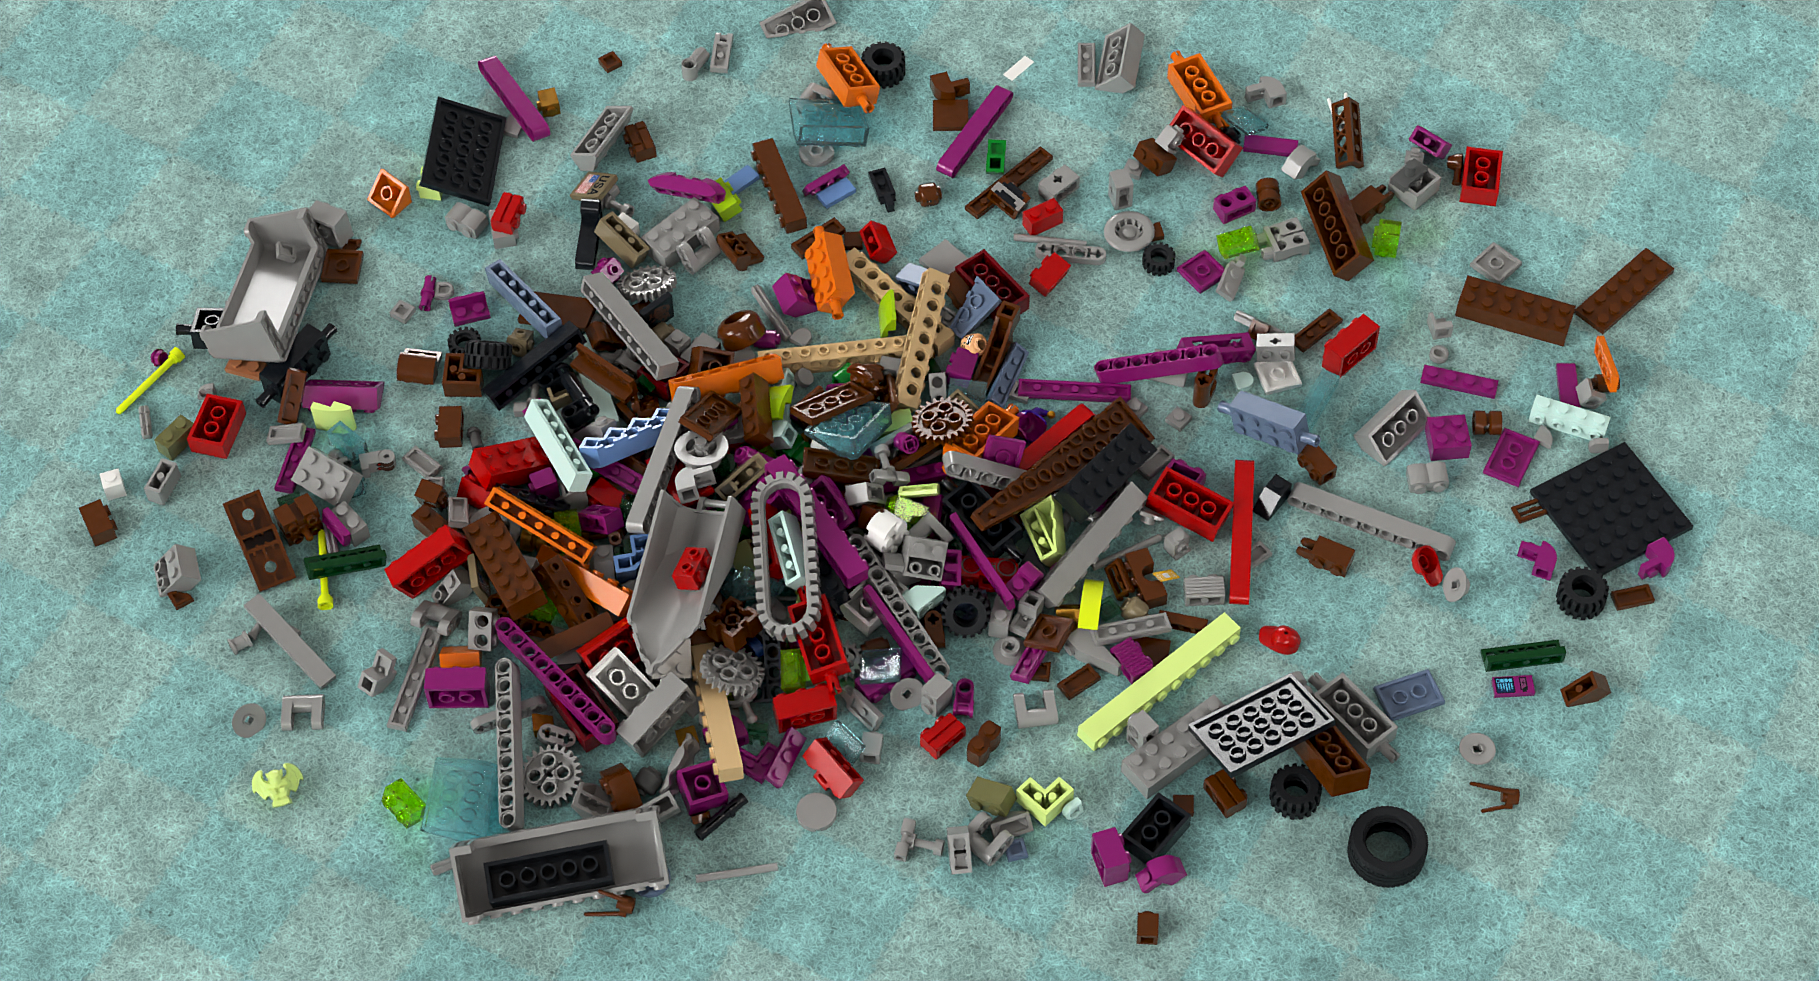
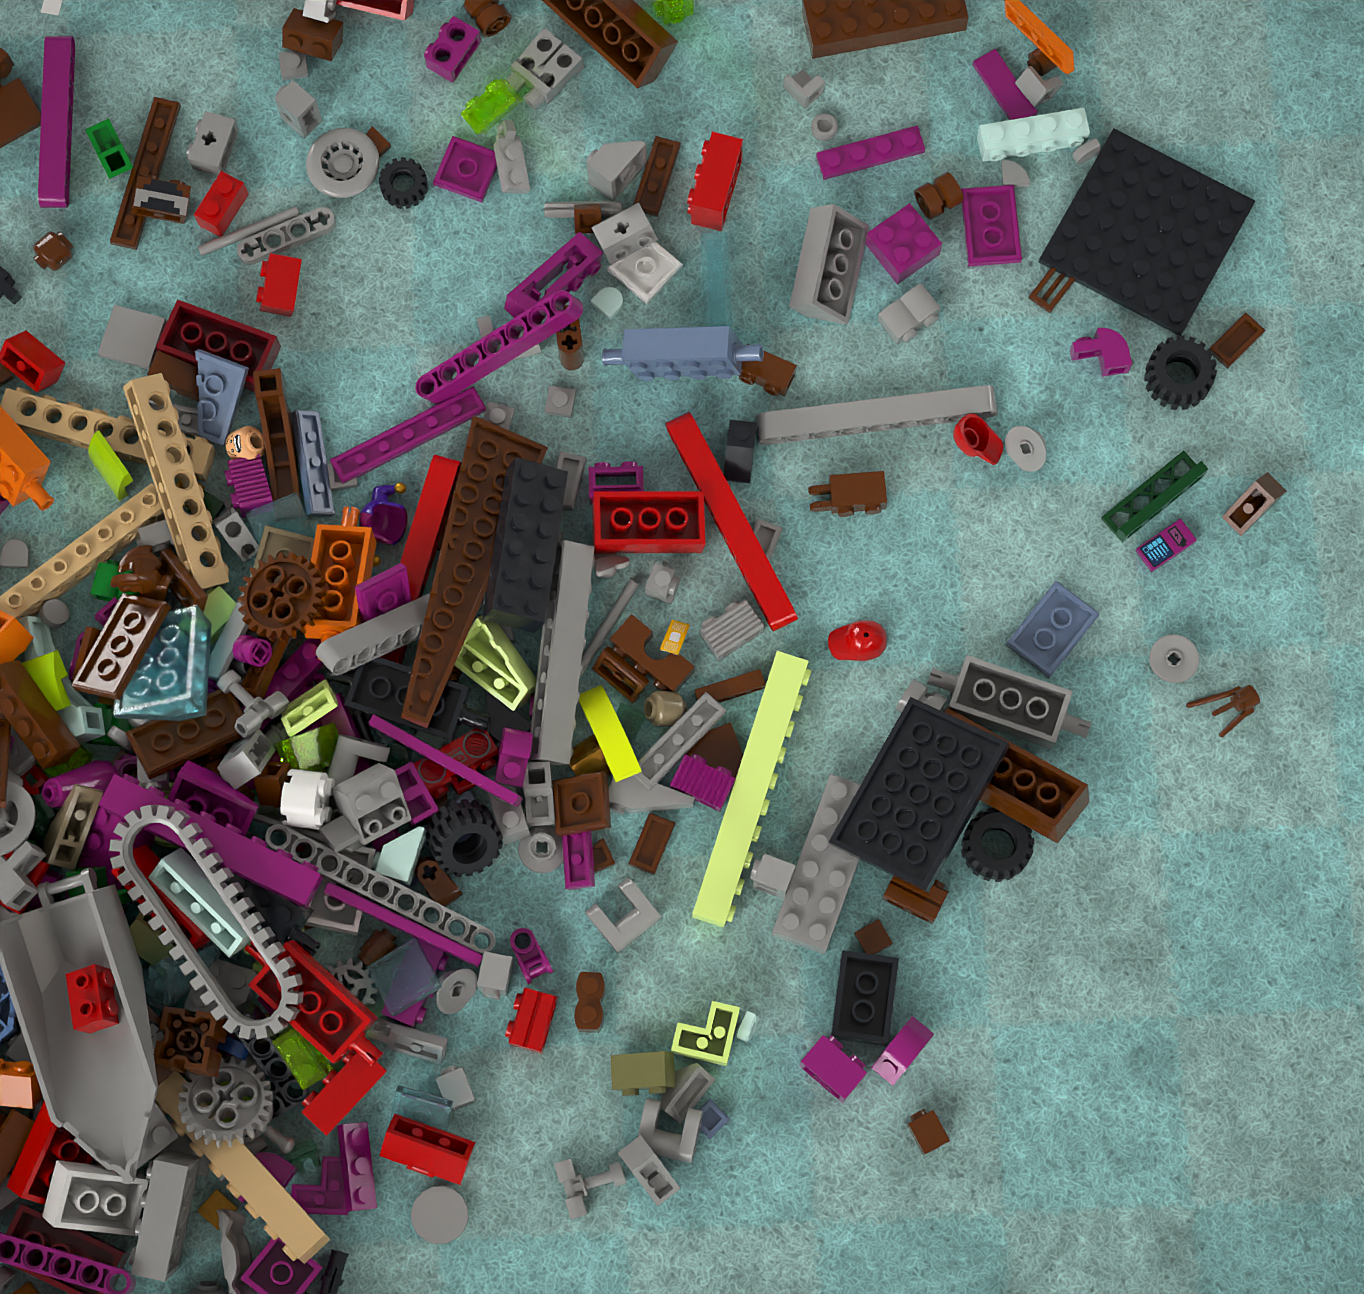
camera: 30 degrees left, 20 degrees up
(797, 452) = (119, 737): none -> light grey tile
(910, 278) = (107, 390): brick -> none
(1293, 309) = (615, 166): none -> light grey slope
(1389, 820) = (1159, 818): black tyre -> none
(1660, 559) = (1243, 267): magenta brick -> none

